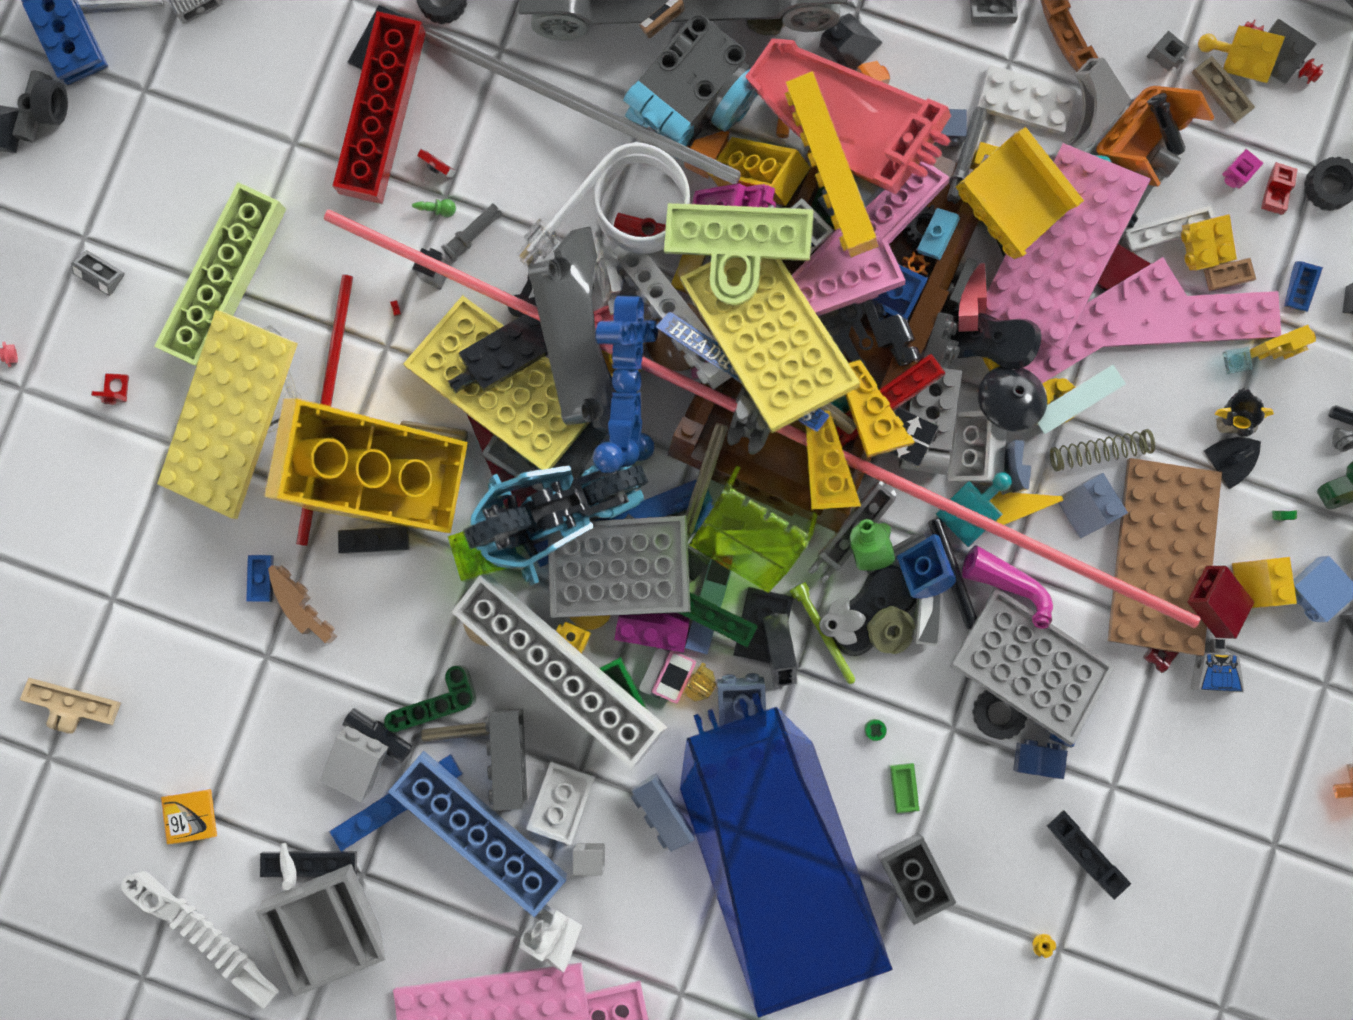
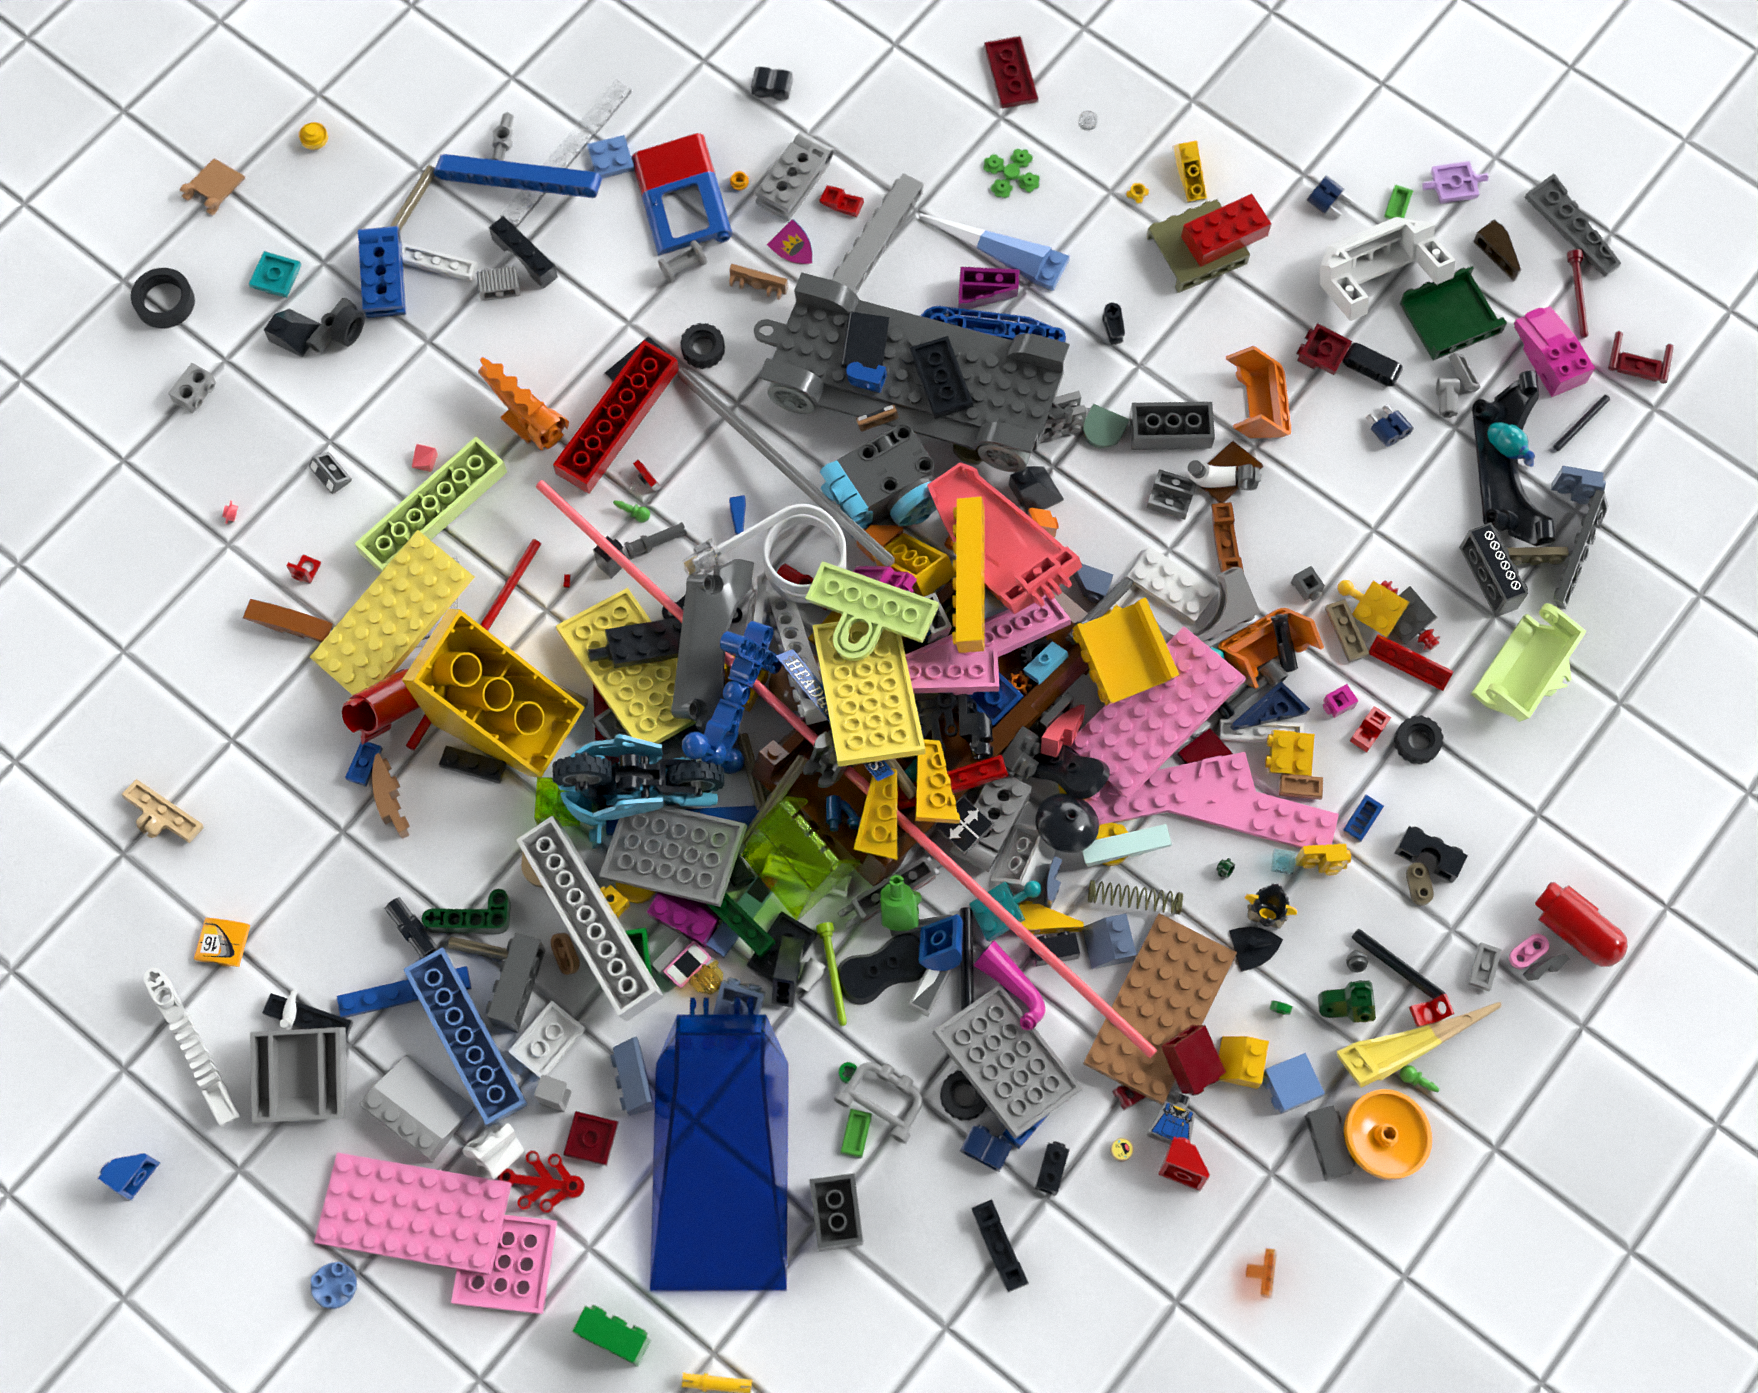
camera: 15 degrees right, 15 degrees down
(117, 452) = (287, 620): none -> dark orange slope
(192, 223) = (424, 457): none -> coral slope
(249, 519) = (378, 707): none -> red piece
(279, 135) = (526, 413): none -> orange piece
(354, 763) = (382, 942): light grey brick -> none
(455, 917) = (417, 1107): none -> light grey slope
(545, 708) = (565, 953): none -> medium nougat plate
(546, 170) = (737, 509): none -> blue slope
(615, 946) = (546, 1183): none -> red plant
(642, 886) = (591, 1138): none -> dark red plate
(662, 446) = (749, 761): none -> dark tan axle
(769, 465) = (834, 814): none -> blue plant
(802, 641) = (811, 973): none -> white cone
(845, 620) = (855, 966): light grey plate -> none
(882, 622) = (882, 982): olive plate -> none
(934, 722) = (903, 1084): none -> light grey bar
(1039, 941) = (931, 1323): yellow plate -> none
(1045, 529) = (1062, 946): none -> black brick
(1112, 757) = (1052, 1168): none -> black brick
(1172, 713) = (1121, 1149): none -> tile
(1177, 196) = (1274, 706): none -> dark blue wing
(1181, 387) = (1225, 868): none -> dark green plate
(1245, 709) = (1184, 1164): none -> red slope
(1300, 102) = (1410, 662): none -> red plate

